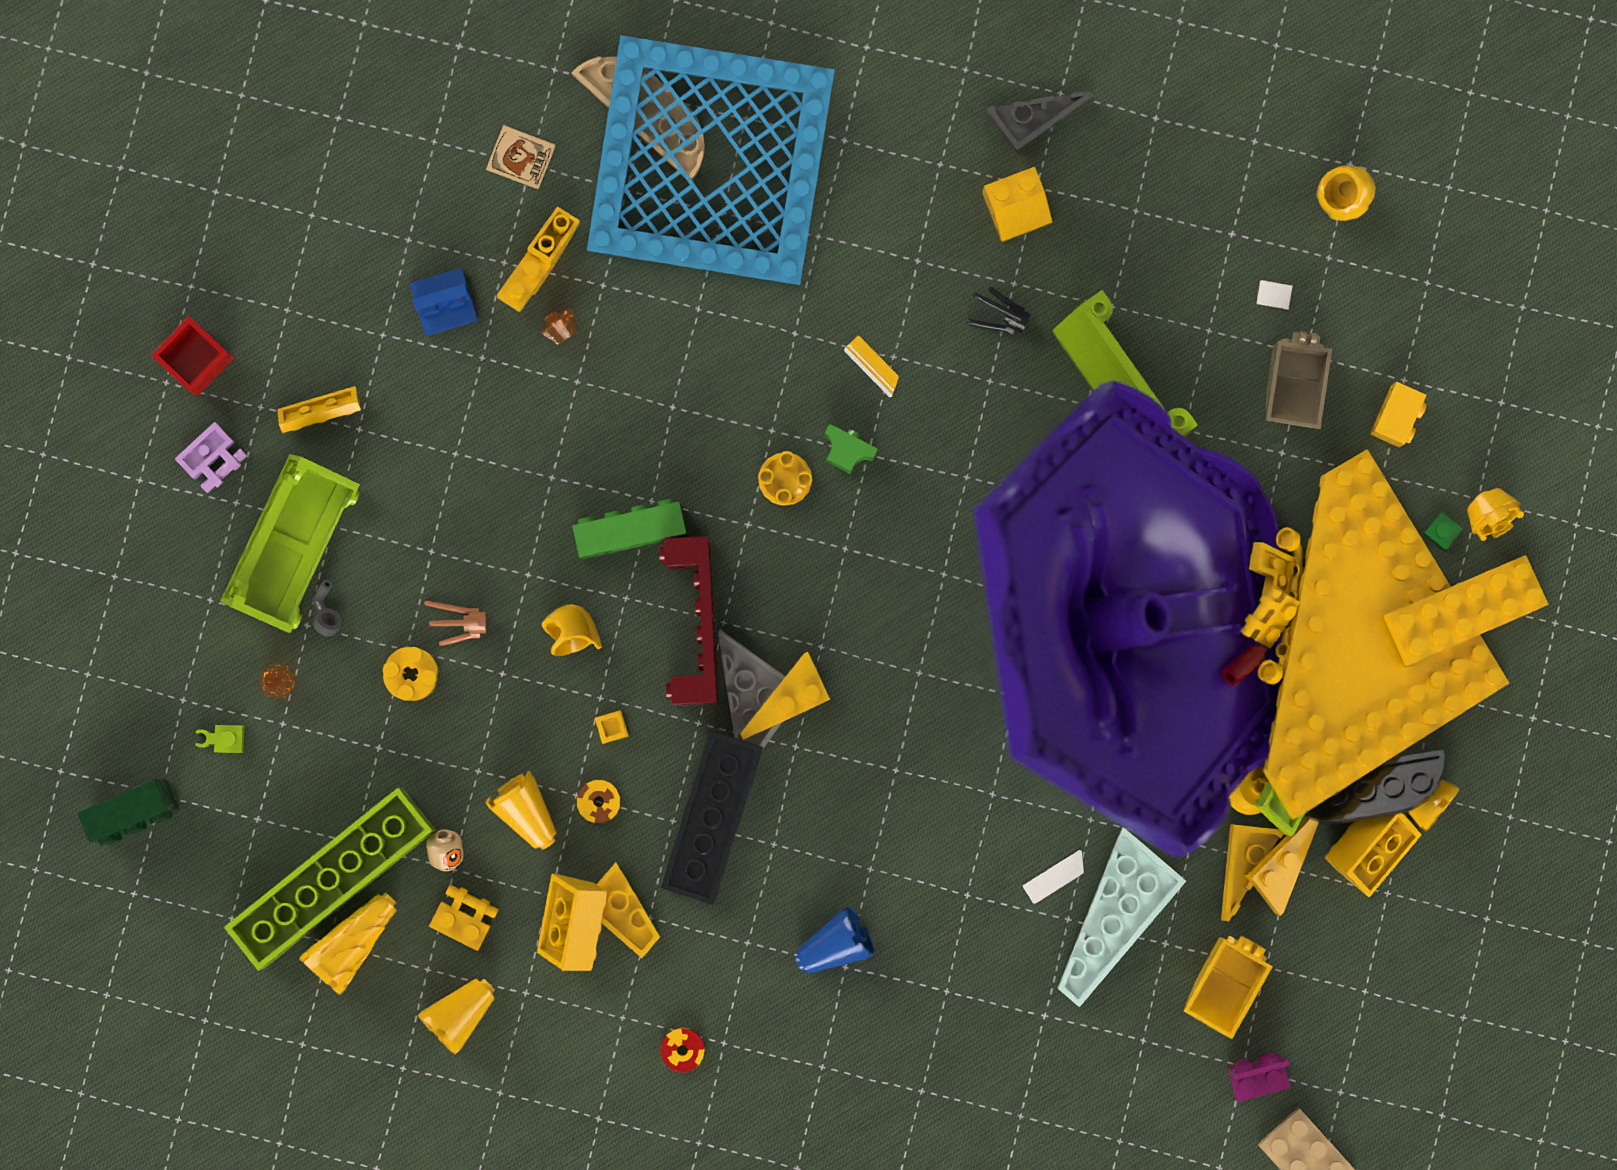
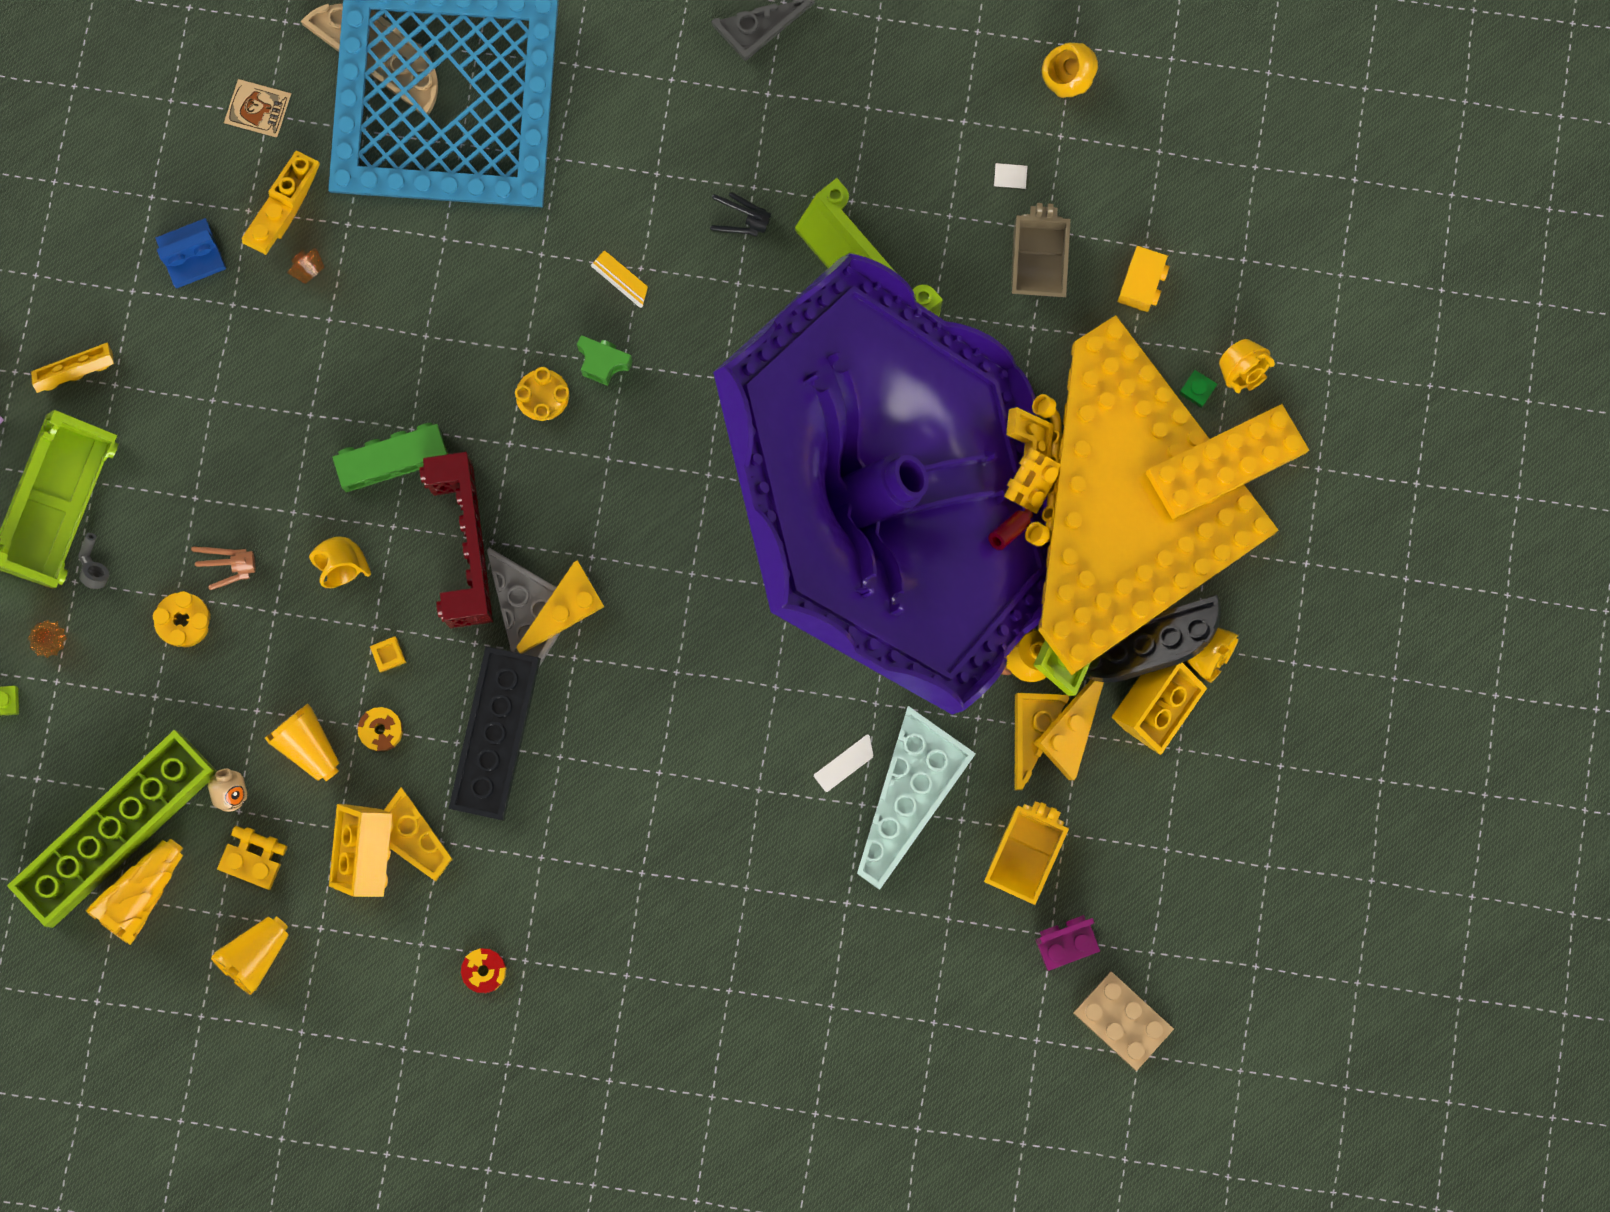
camera: 10 degrees left, 5 degrees down
(836, 944) = (629, 848): blue cone -> none
(1017, 204) = (749, 109): yellow slope -> none

